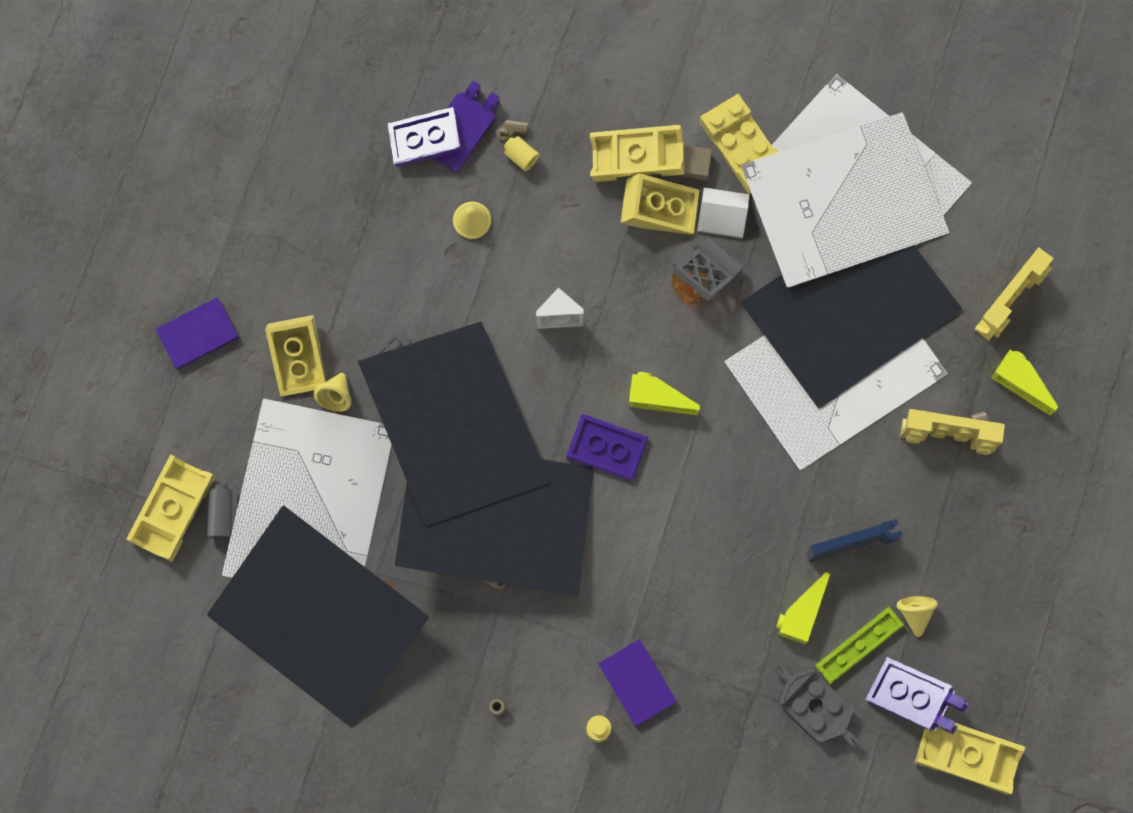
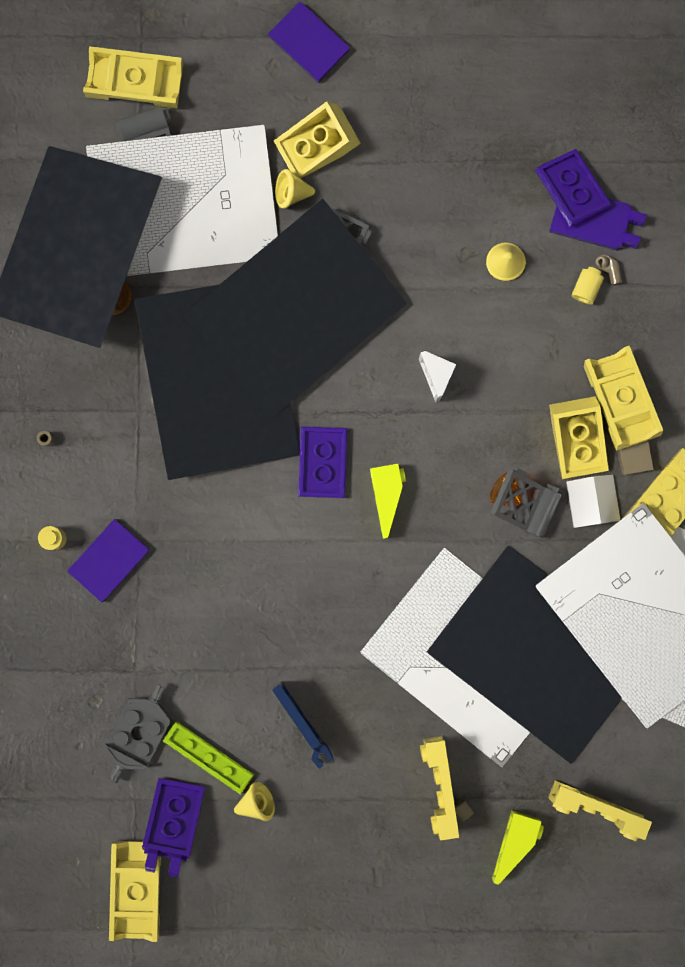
camera: 75 degrees right, 10 degrees up
(800, 617) = (217, 694): neon yellow slope -> none

